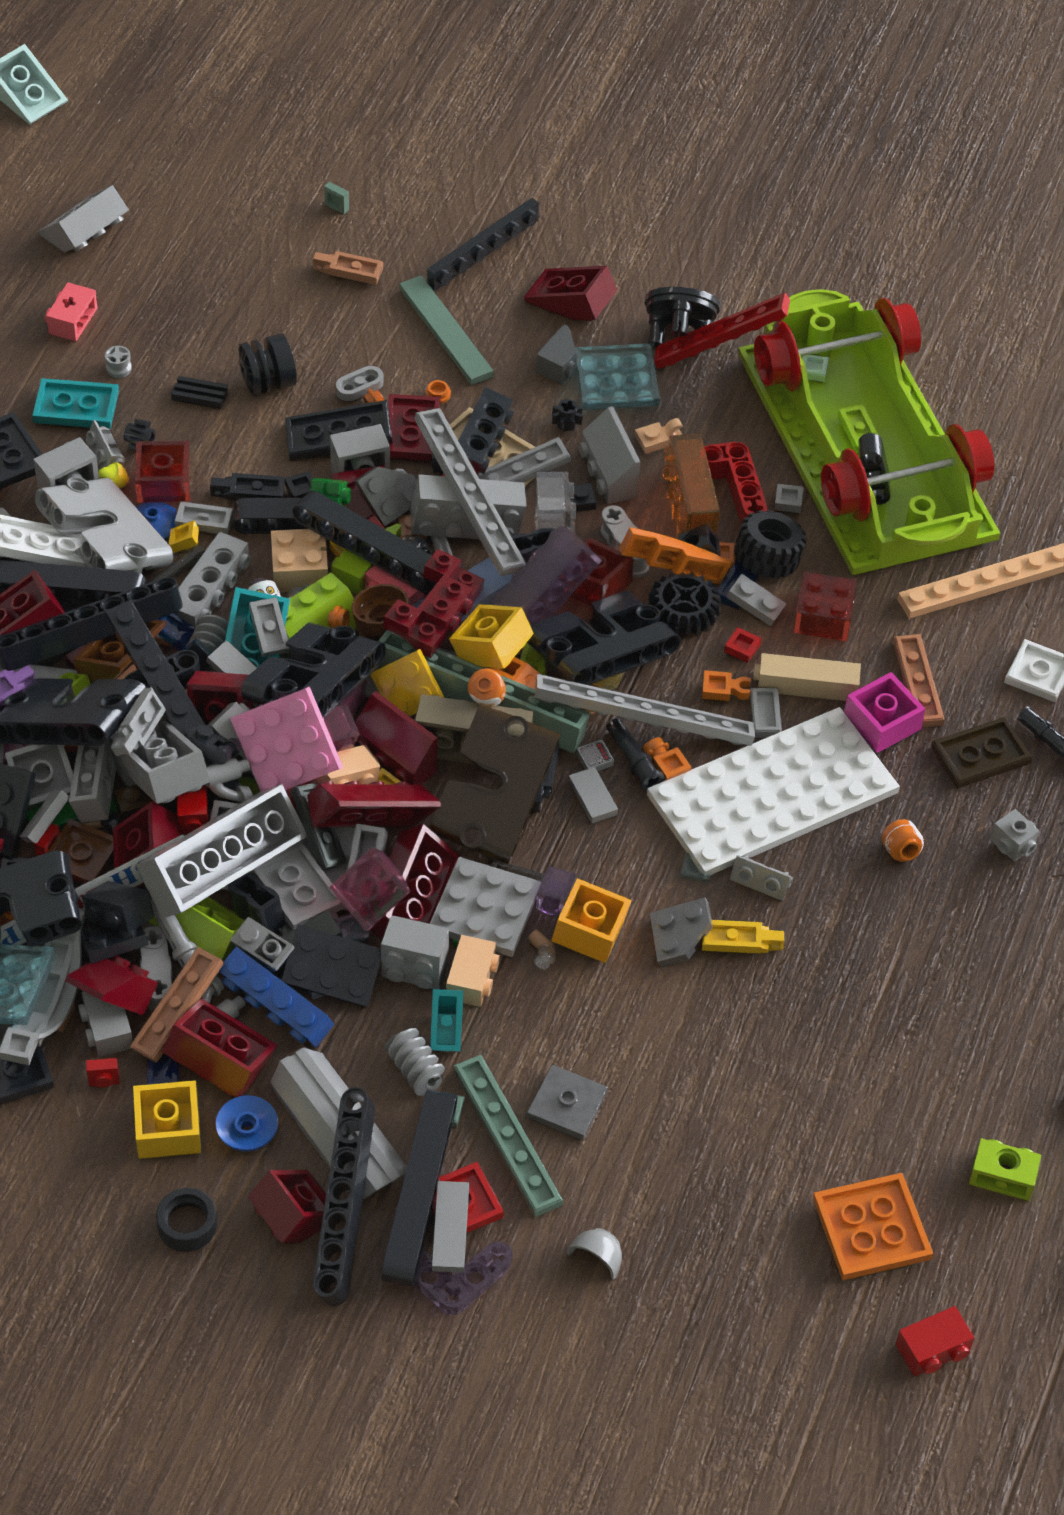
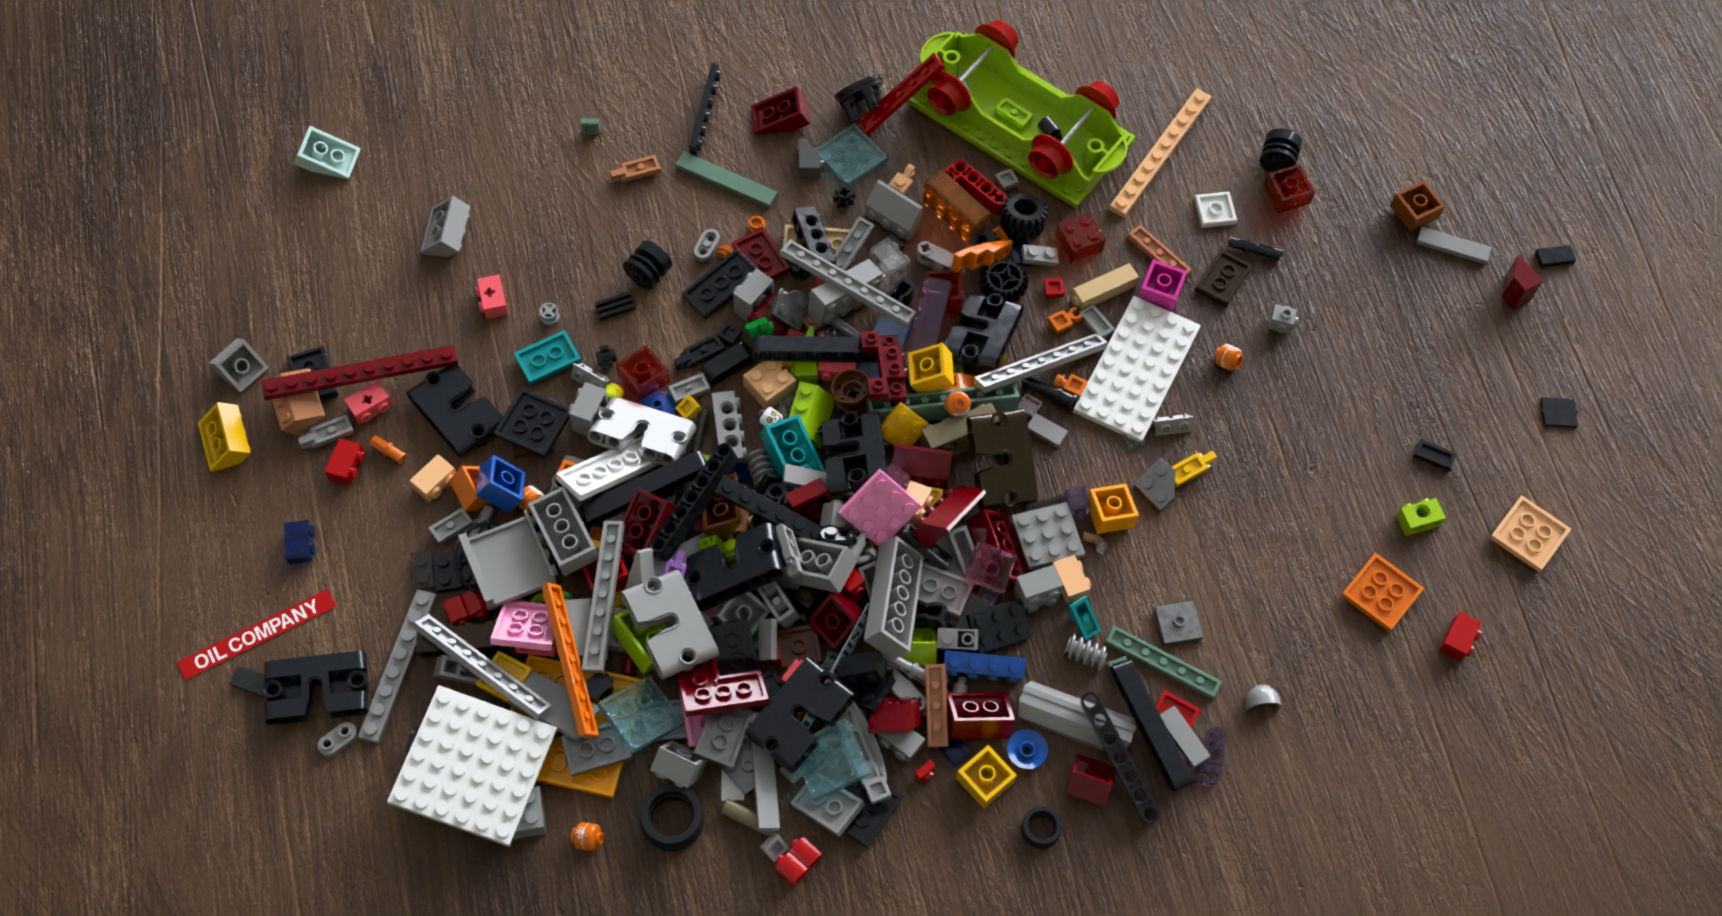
camera: 35 degrees left, 10 degrees up
(269, 627) = (803, 440): light grey plate -> none
(338, 617) = (827, 408): orange plate -> none

